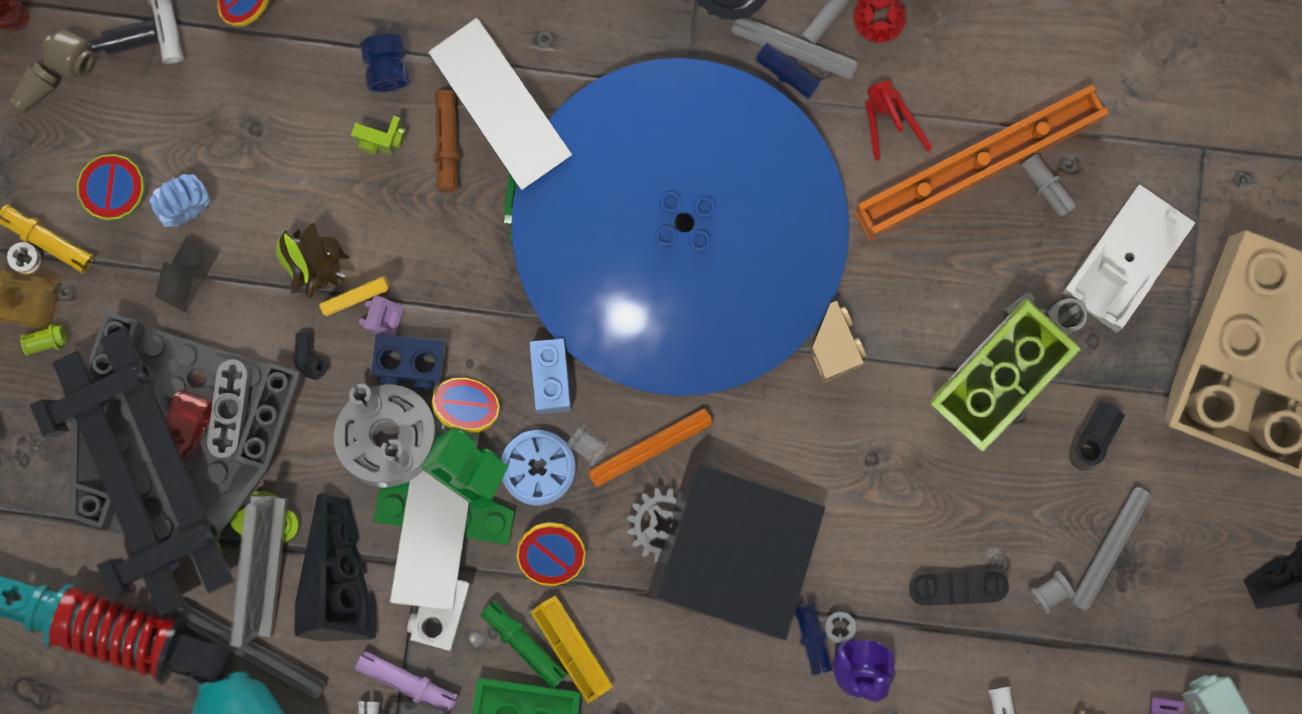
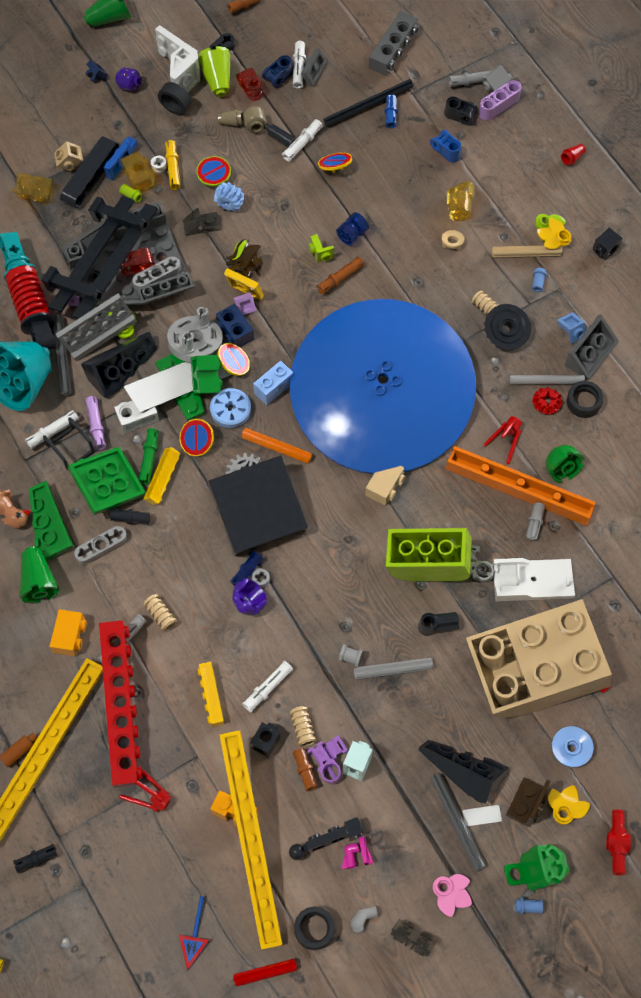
camera: 50 degrees right, 15 degrees down
(305, 360) = (202, 290): black arm -> none
(500, 104) = (372, 279): white sticker -> none
(588, 445) = (256, 419): clear bush -> none
(787, 71) = (489, 380): clear blue pin -> none
(795, 47) = (502, 377): light grey axle -> none
(959, 588) = (319, 614): black piece -> none
(995, 75) = (564, 462): none -> green cylinder

